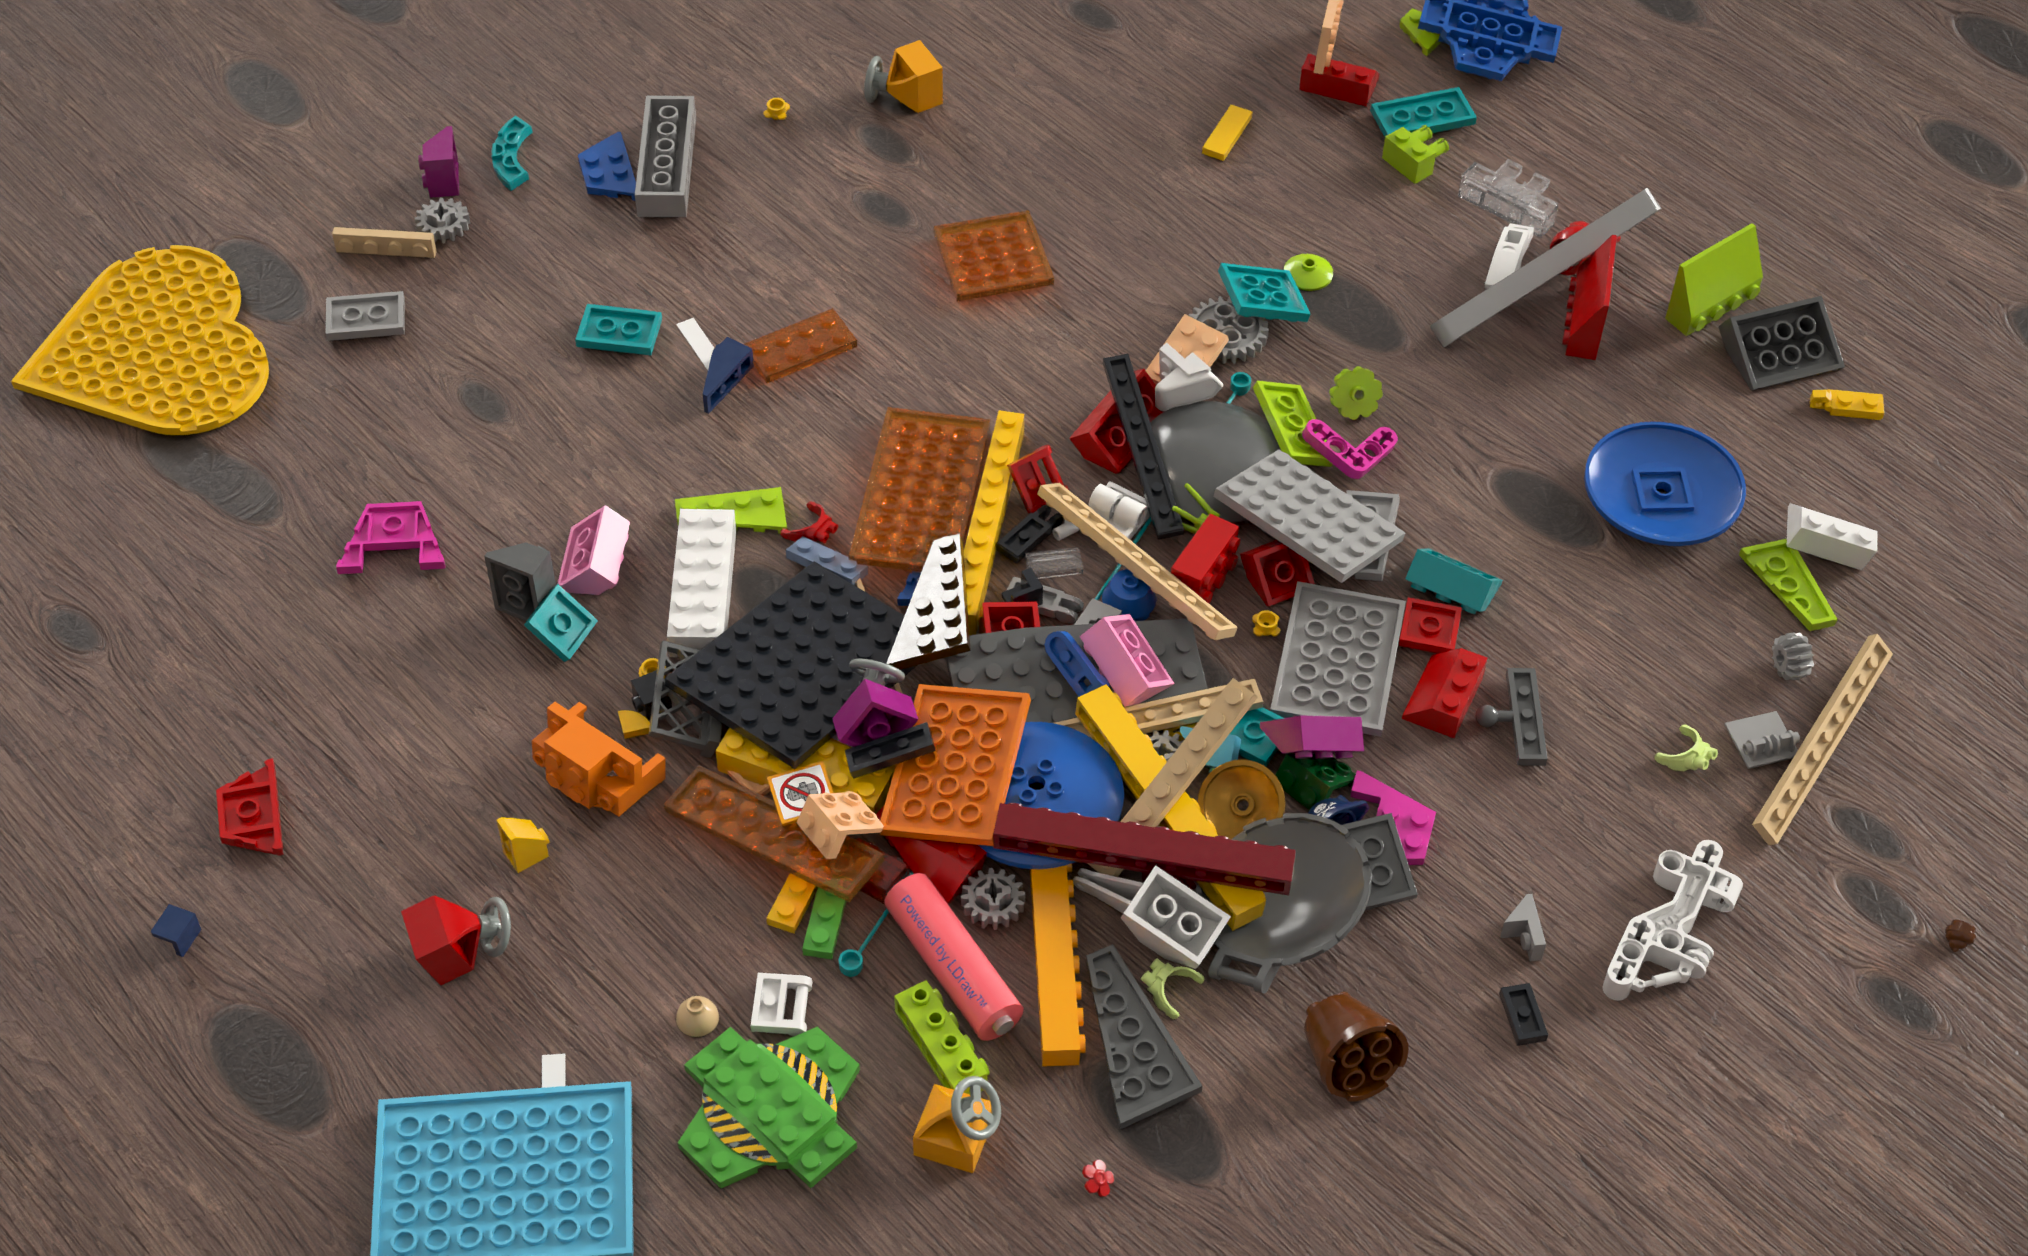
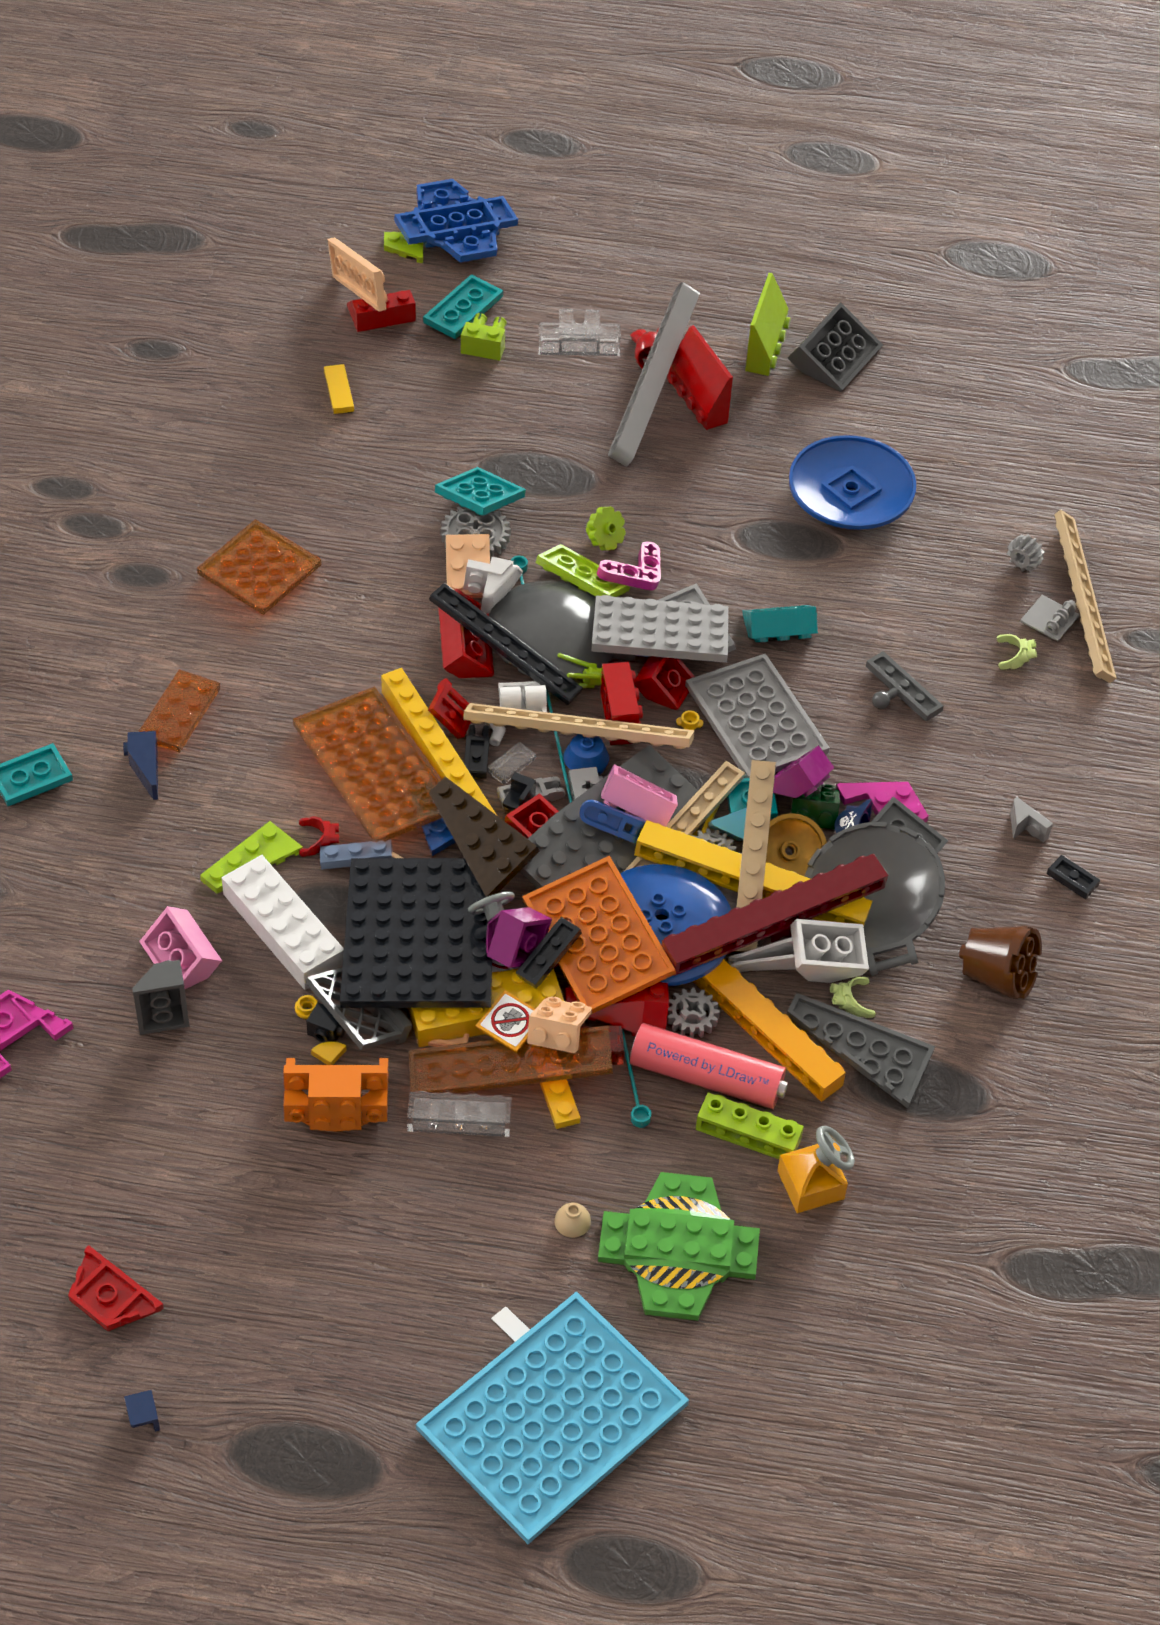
camera: 40 degrees left, 0 degrees up
(448, 935) = (358, 1275): red piece -> none
(522, 842) = (339, 1184): yellow slope -> none
(561, 623) = (210, 1012): teal plate -> none
(688, 851) = (459, 1114): none -> clear brick
(697, 340) = (99, 751): white sticker -> none
(771, 1002) = (616, 1178): white plate -> none
(824, 925) = (595, 1102): bright green plate -> none
(913, 78) = (77, 463): light orange piece -> none
(1098, 1178) = (925, 1148): red plant -> none
(1310, 271) = (488, 459): lime dish -> none
(1430, 626) = (795, 661): red plate -> none
(1446, 691) = (842, 698): red slope -> none
(1509, 252) = (615, 377): white slope -> none
(1669, 924) = (1105, 776): white beam -> none
(1791, 582) = (978, 505): lime wing -> none
(1830, 537) = (978, 462): white slope -> none
(1849, 403) = (907, 368): yellow hinge -> none

